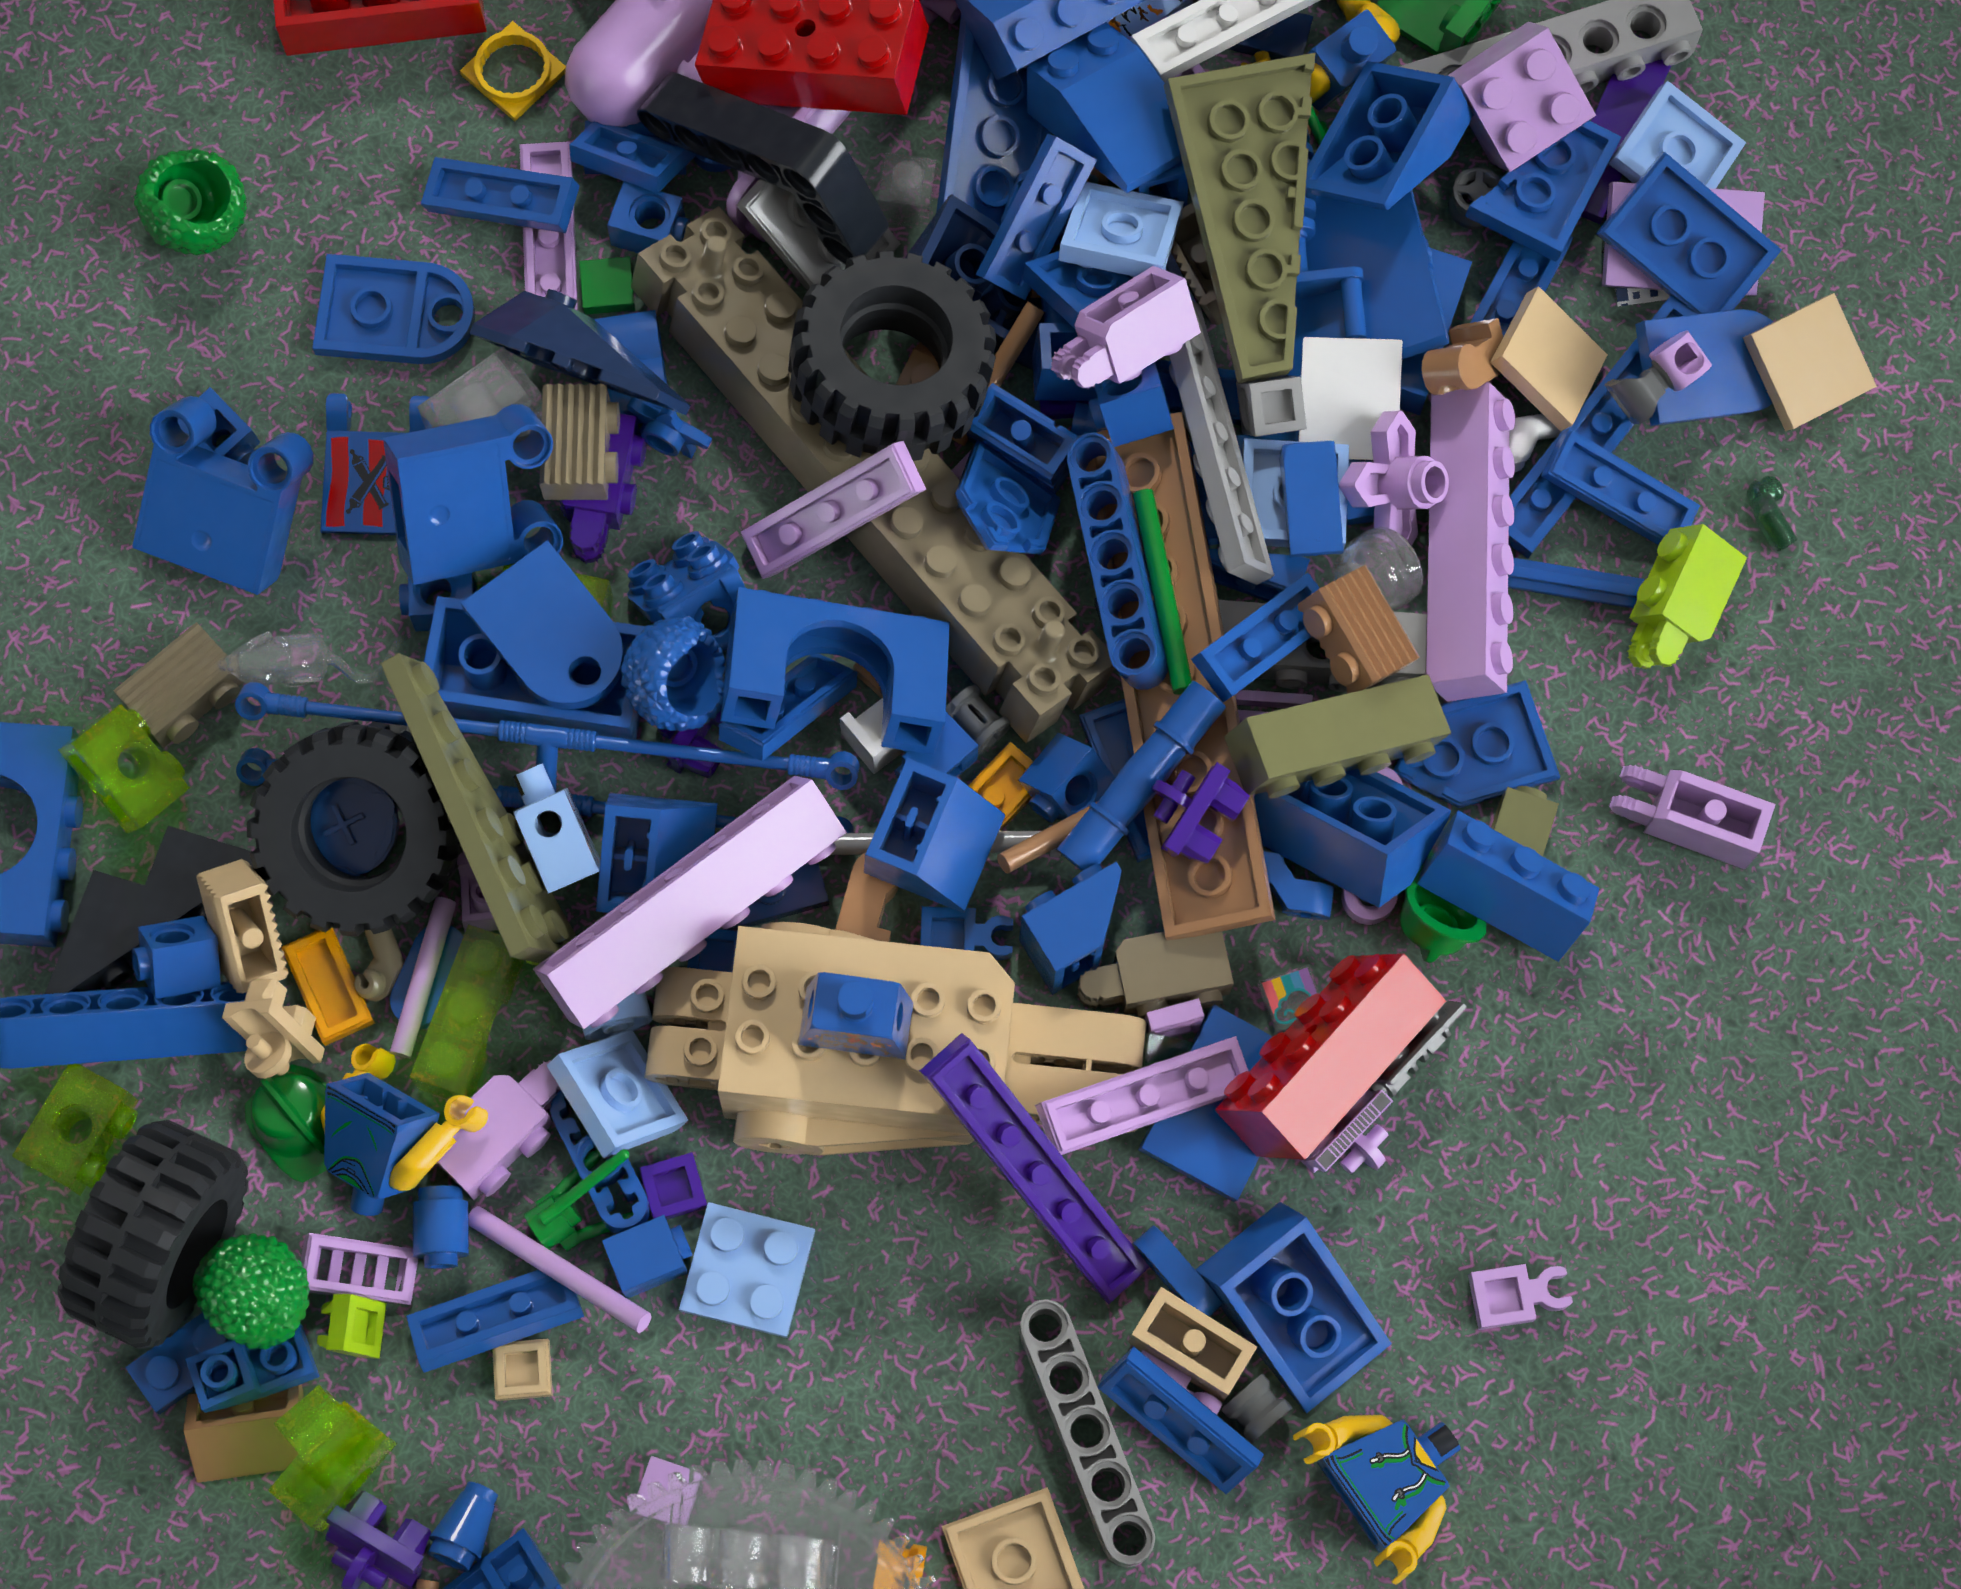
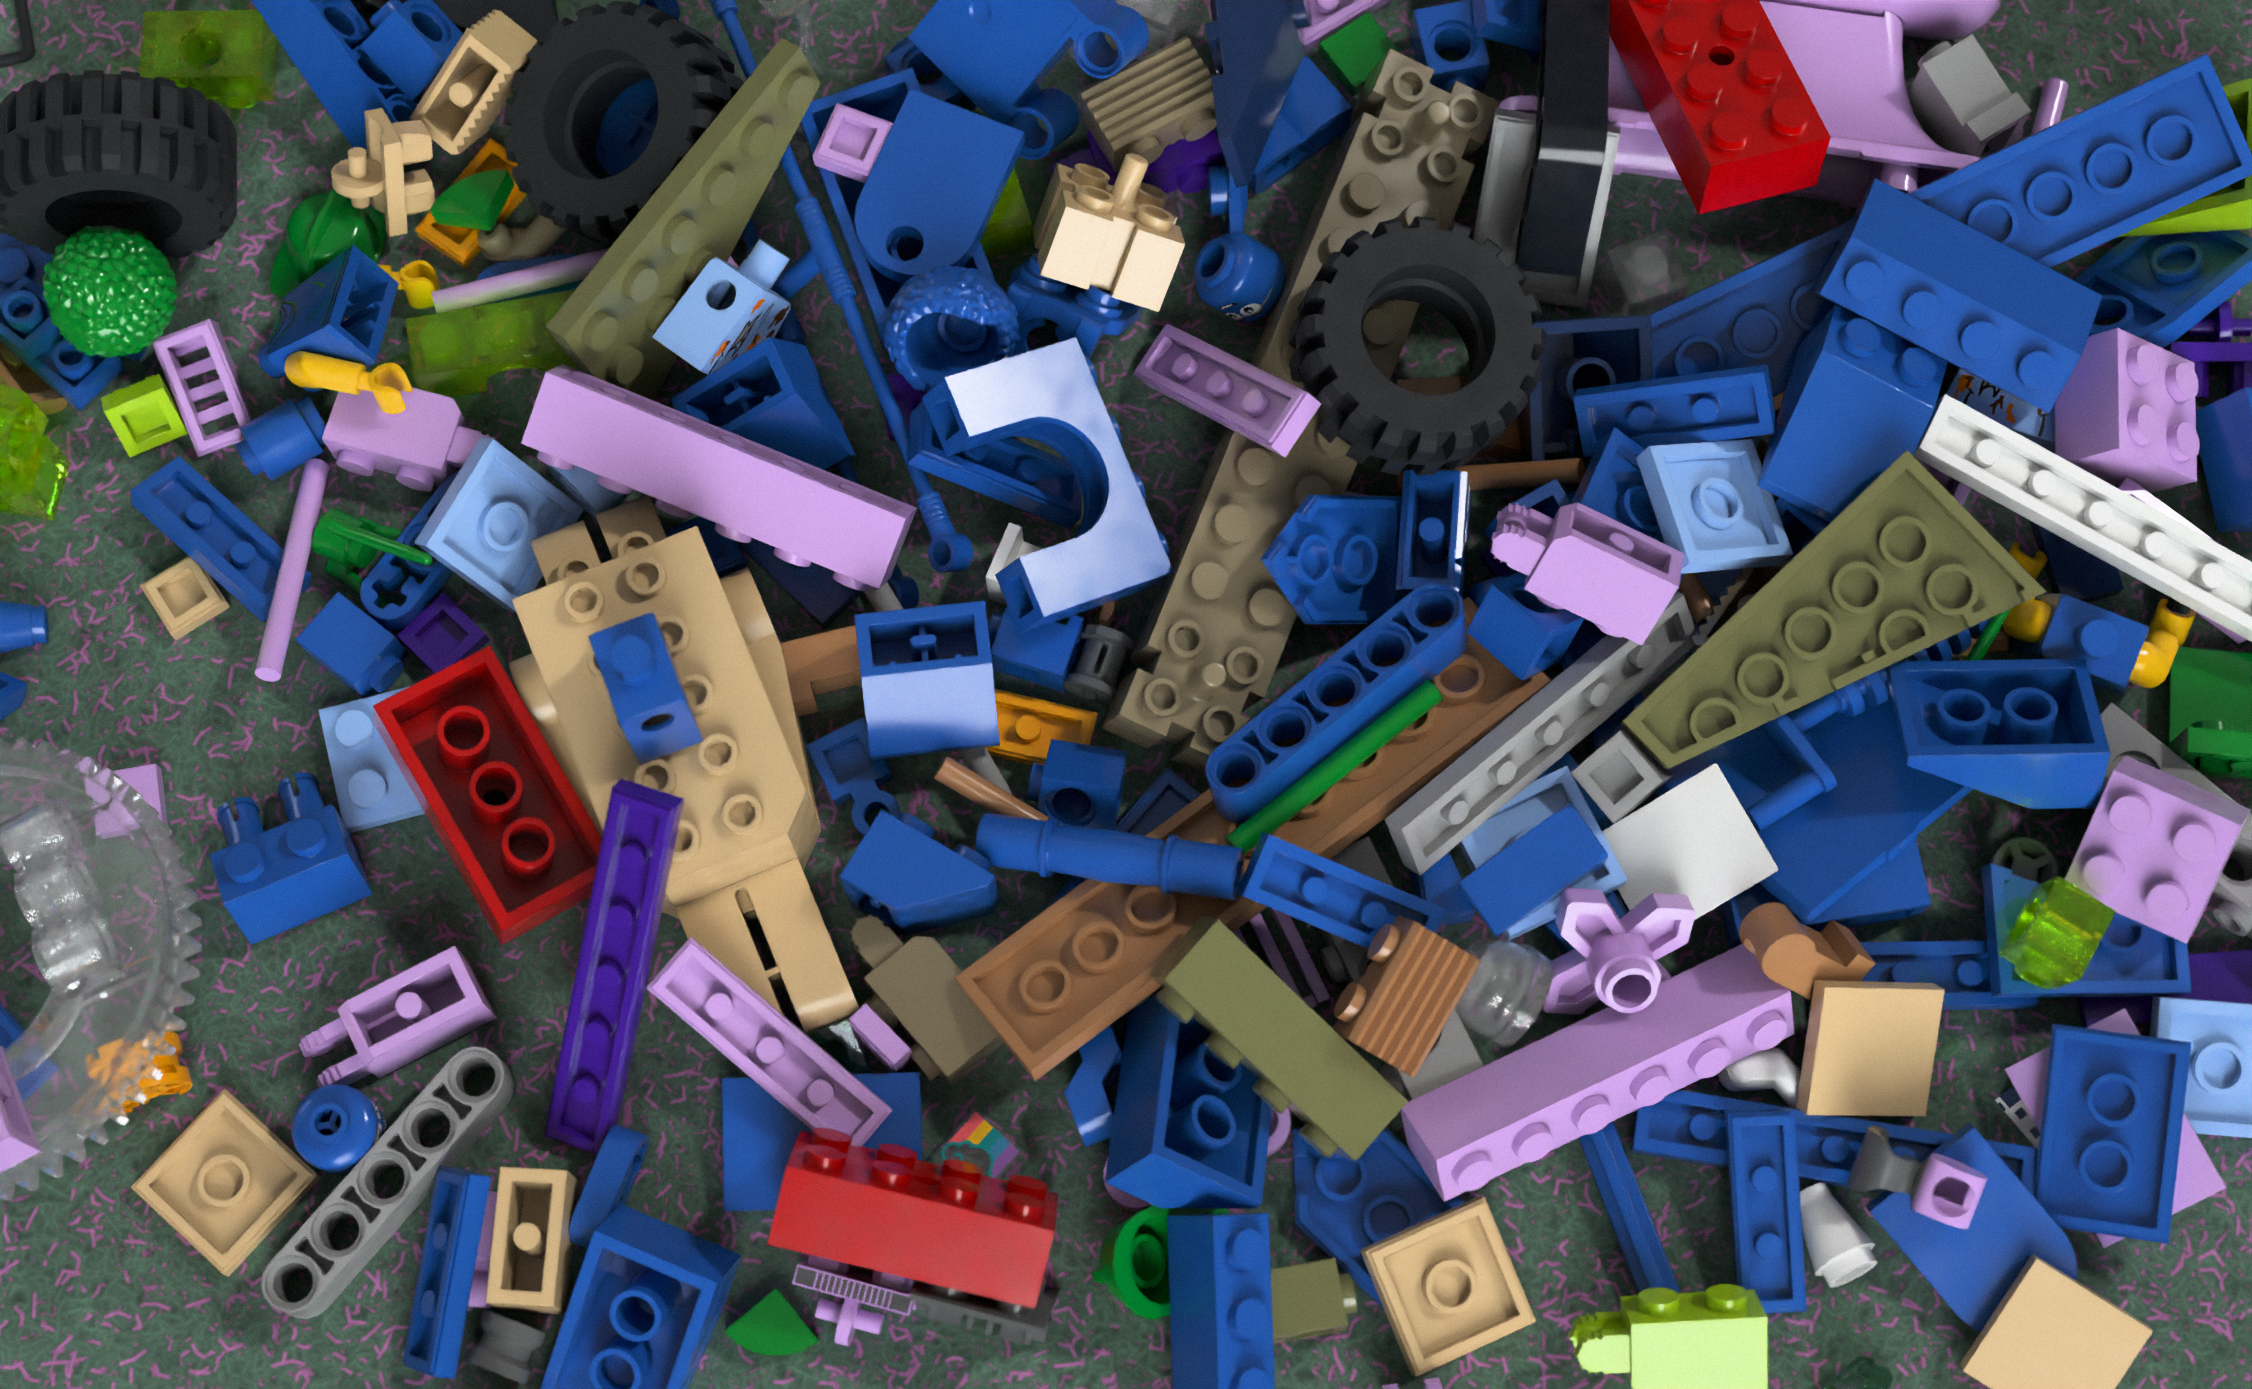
camera: 65 degrees right, 0 degrees up
(333, 982) = (474, 200): none -> green tile
(477, 668) = (851, 142): none -> lavender tile
(659, 527) = (1109, 234): none -> brick
(738, 460) = (1239, 276): none -> blue head
(803, 1387) = (291, 870): none -> blue brick
(889, 1187) = (472, 737): none -> red brick
(969, 1358) = (403, 1018): none -> lavender hinge
(1019, 1469) = (320, 1112): none -> blue head
(1214, 792) = (1068, 934): dark purple hips -> none
(1341, 1210) = (772, 1328): none -> green tile
(1545, 191) = (2056, 934): none -> clear neon green brick
(1560, 727) = (1447, 1285): none -> tan tile
(1662, 458) = (1833, 1238): none -> white cone

